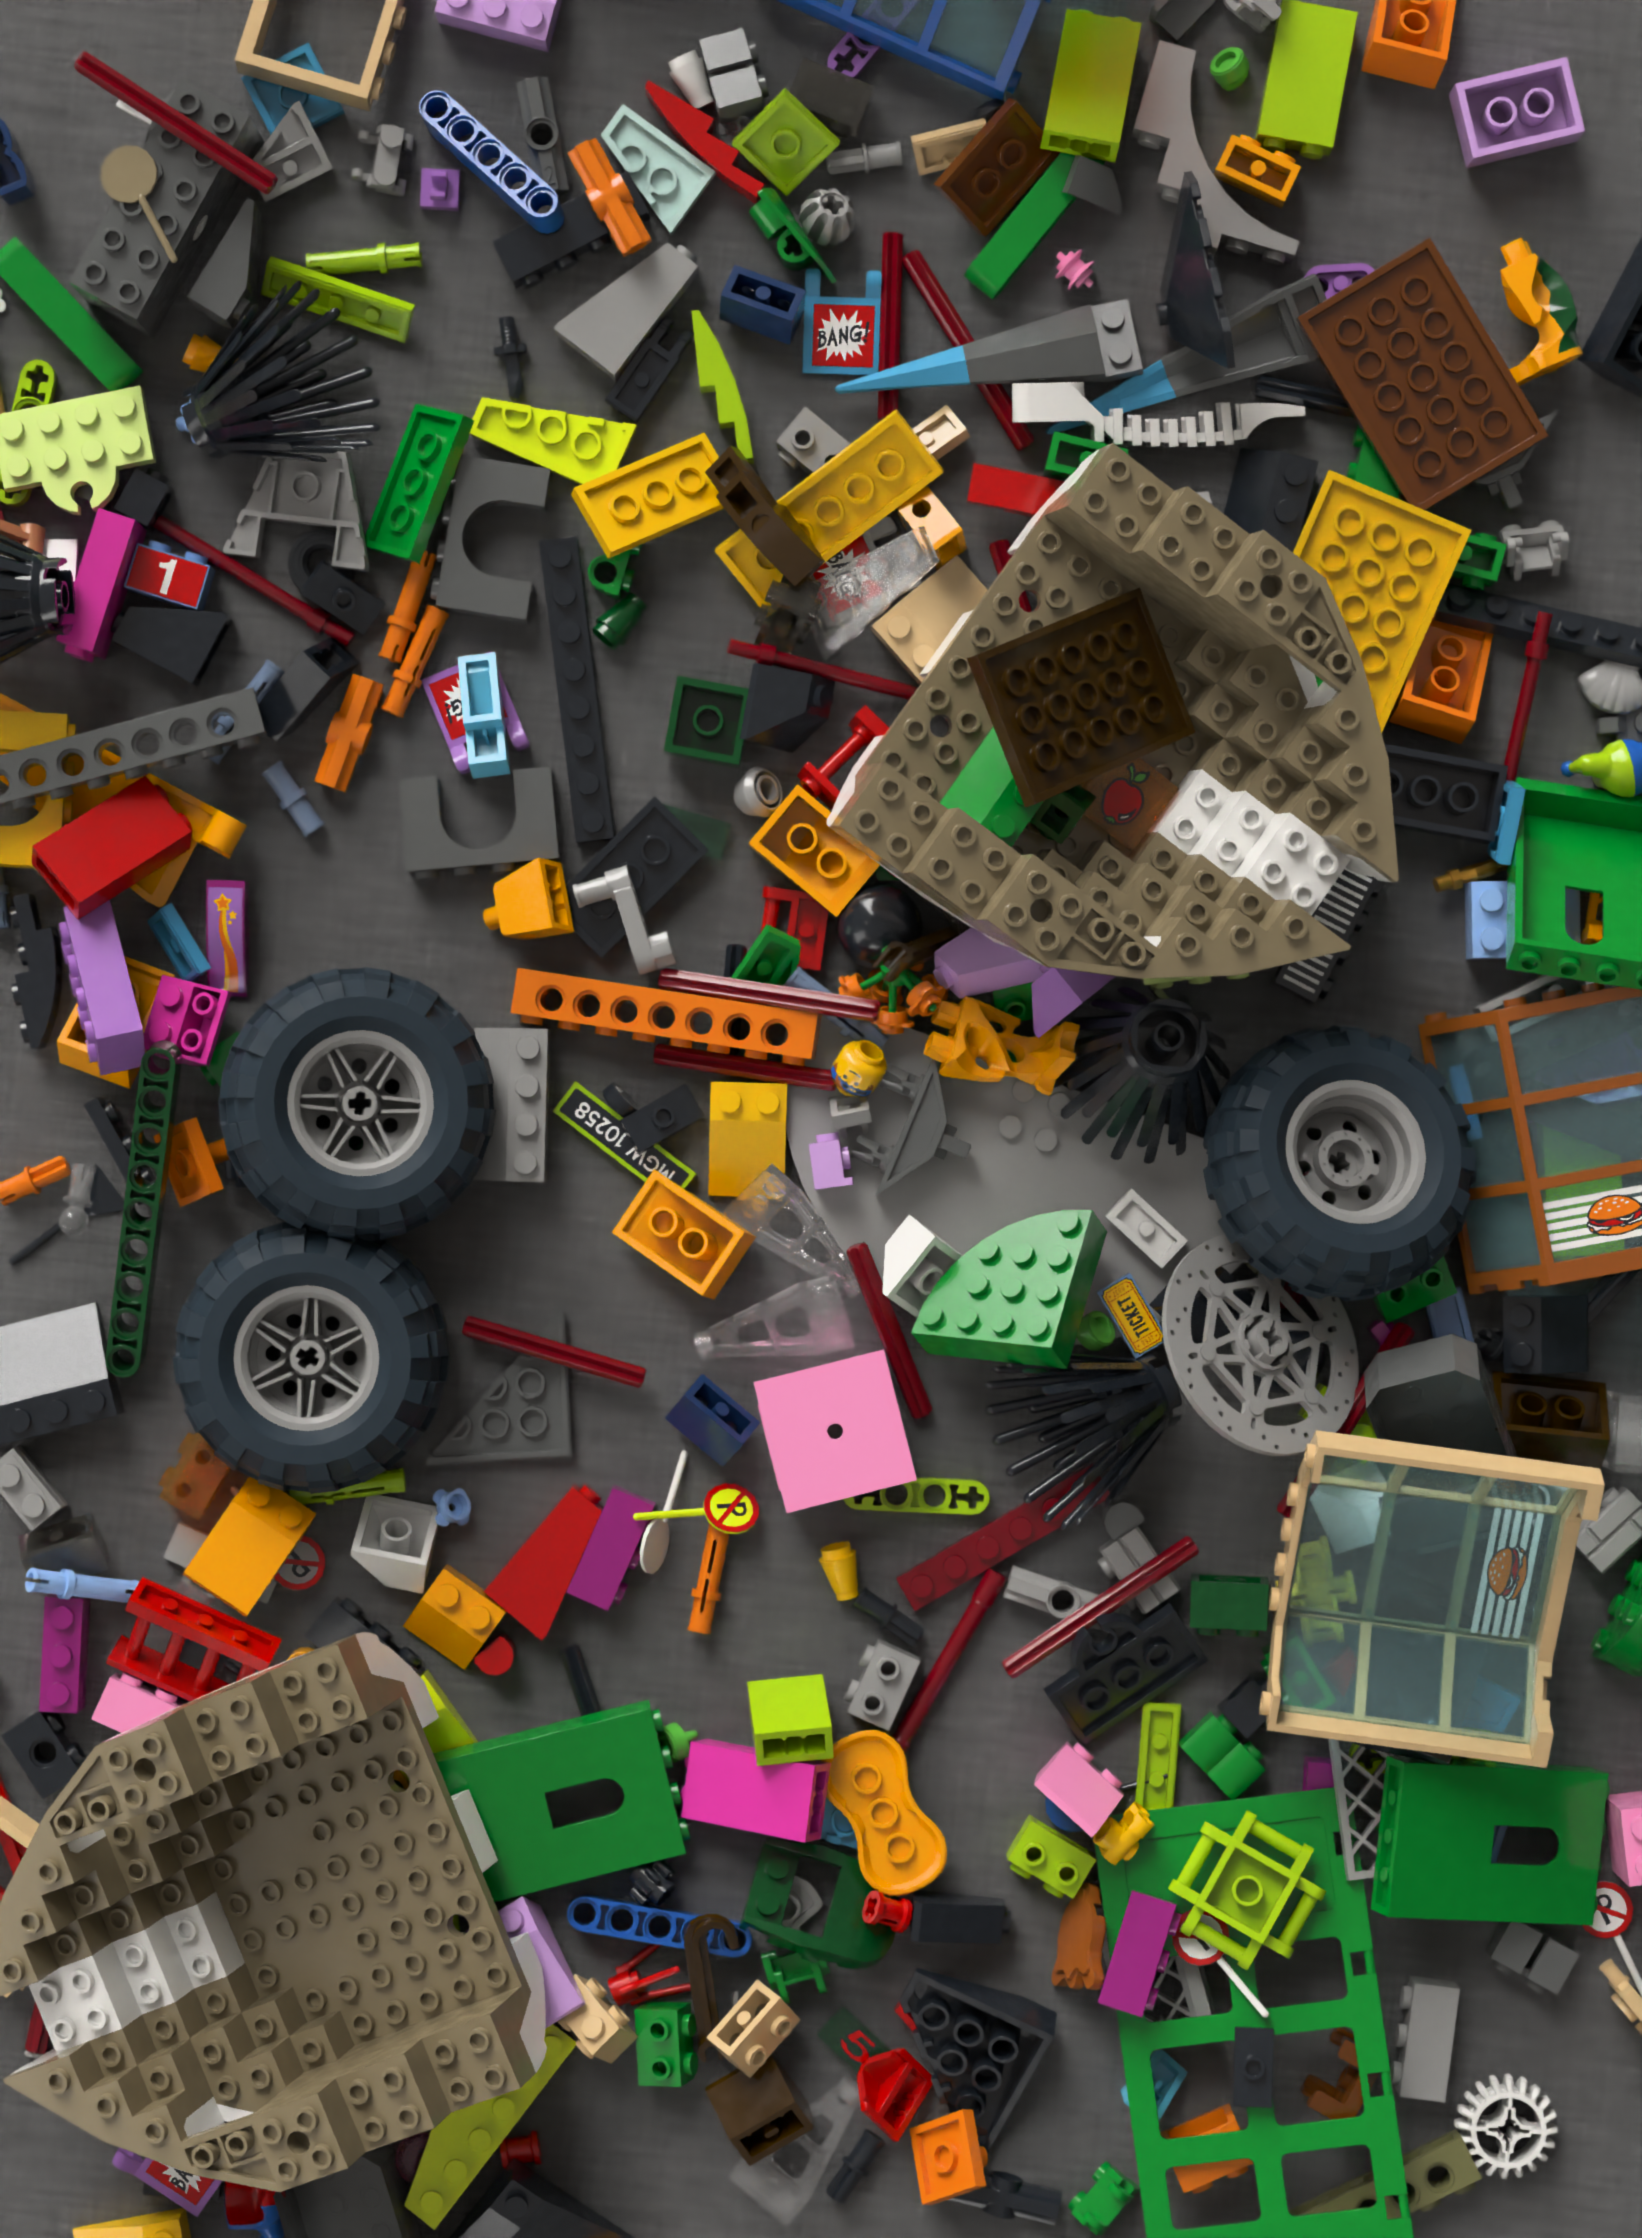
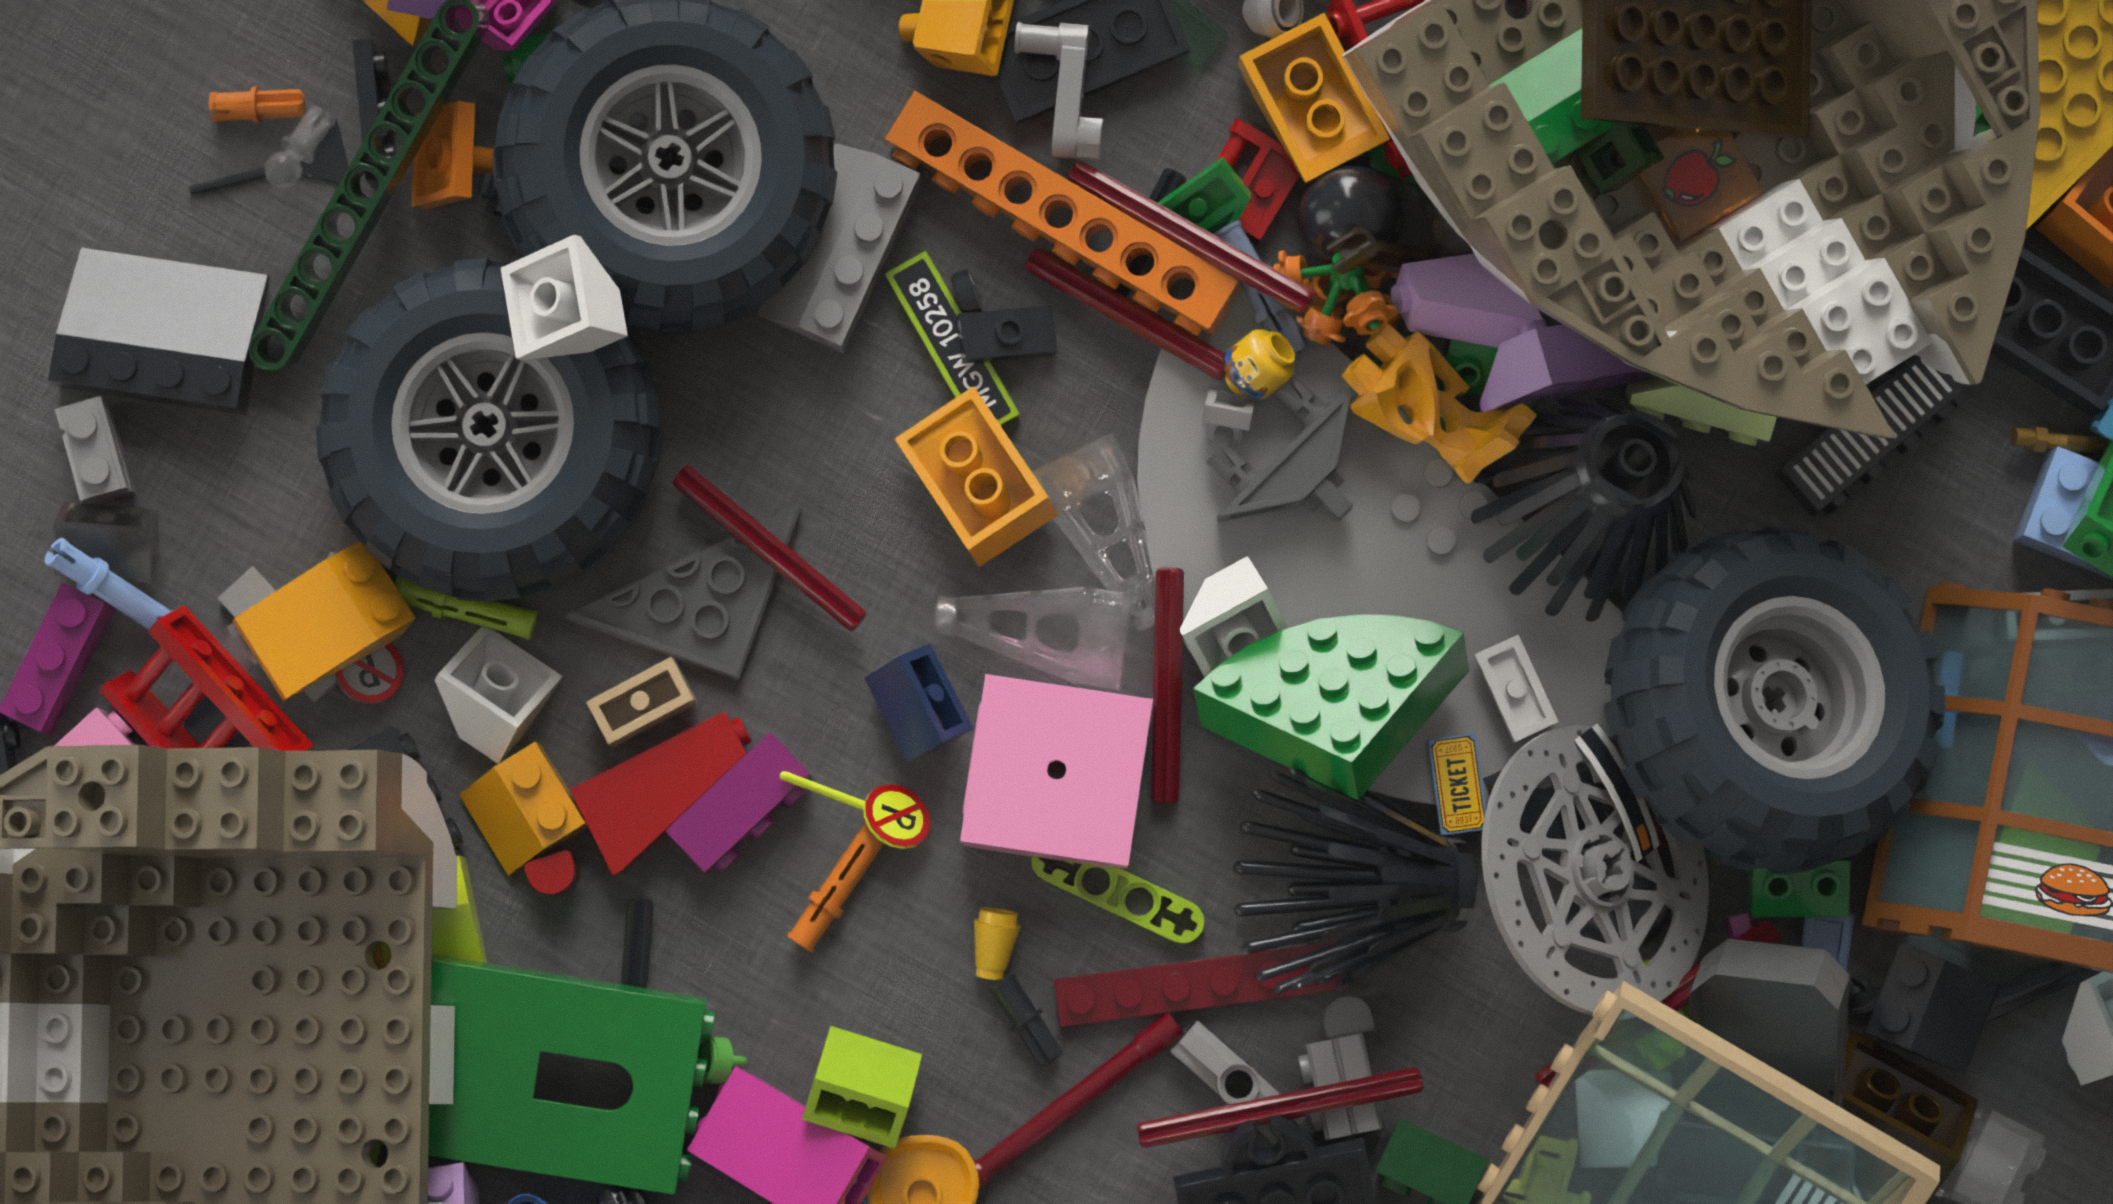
camera: 30 degrees right, 5 degrees down
(200, 1474) = (304, 523): clear orange brick -> none
(327, 1248) = (561, 302): none -> white slope
(460, 1503) = (585, 675): light blue plate -> none
(509, 1505) = (641, 702): none -> tan brick
(656, 1537) = (798, 808): white piece -> none
(745, 1134) = (1095, 389): yellow slope -> none
(829, 1162) = (1179, 459): lavender brick -> none
(882, 1683) = (986, 1094): light grey brick -> none
(1096, 1331) = (1406, 783): bright green tile -> none
(1238, 1261) = (1633, 811): none -> sticker

